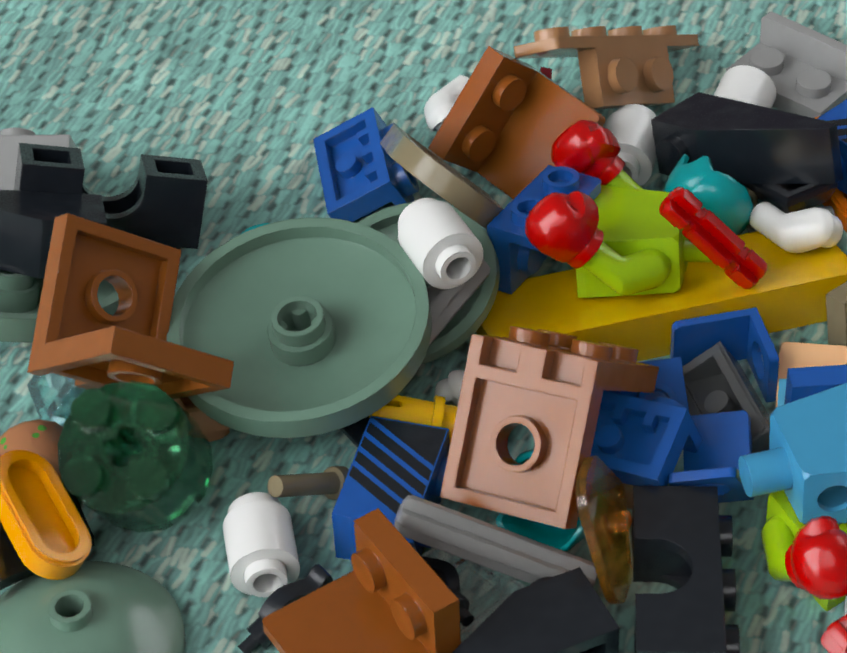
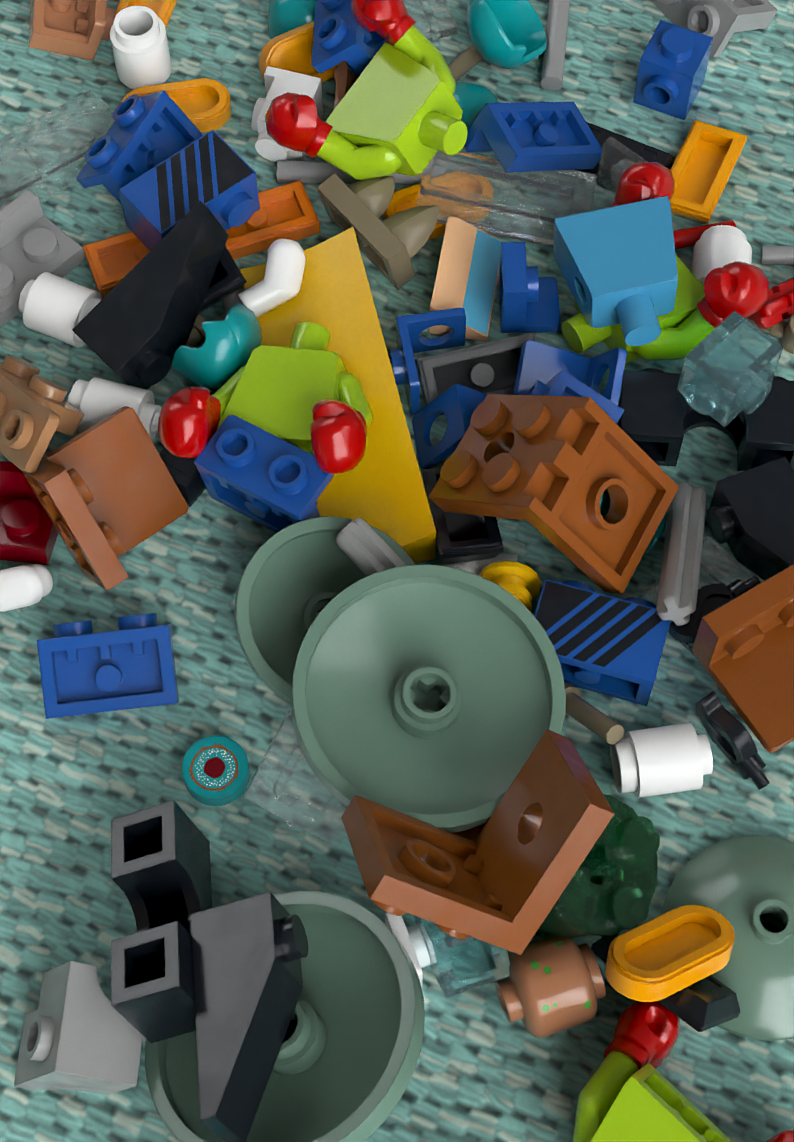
camera: 90 degrees left, 20 degrees up
(439, 243) = (361, 544): white brick -> none
(440, 177) = (203, 562): dark tan tile -> none
(605, 526) = (684, 457): clear orange piece -> none
(709, 550) = (730, 370): none -> clear light blue brick
(713, 237) = (332, 327): red axle -> none

